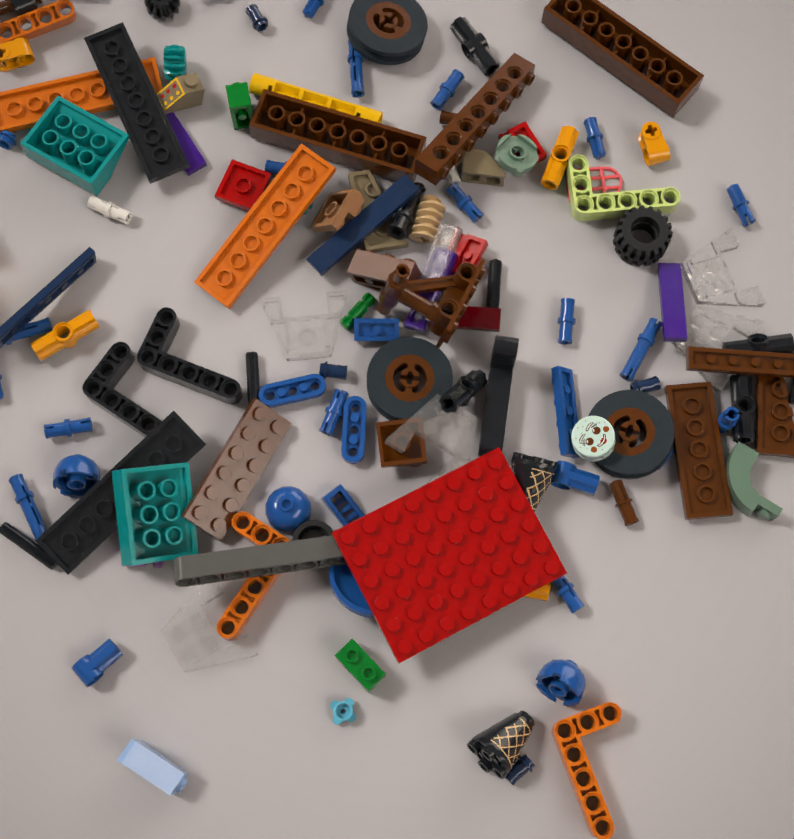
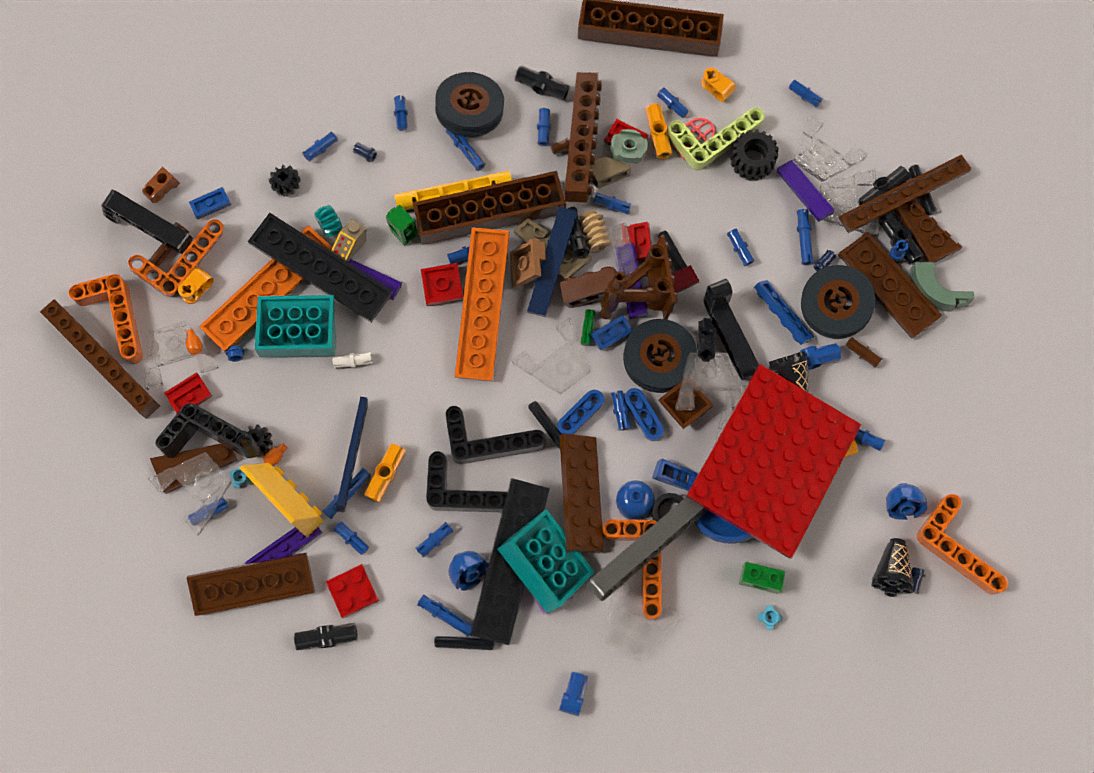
camera: 30 degrees left, 0 degrees up
(153, 767) = (668, 740): light blue slope -> none
(333, 371) = (600, 381): dark blue pin -> none
(593, 438) = (818, 319): light aqua head -> none

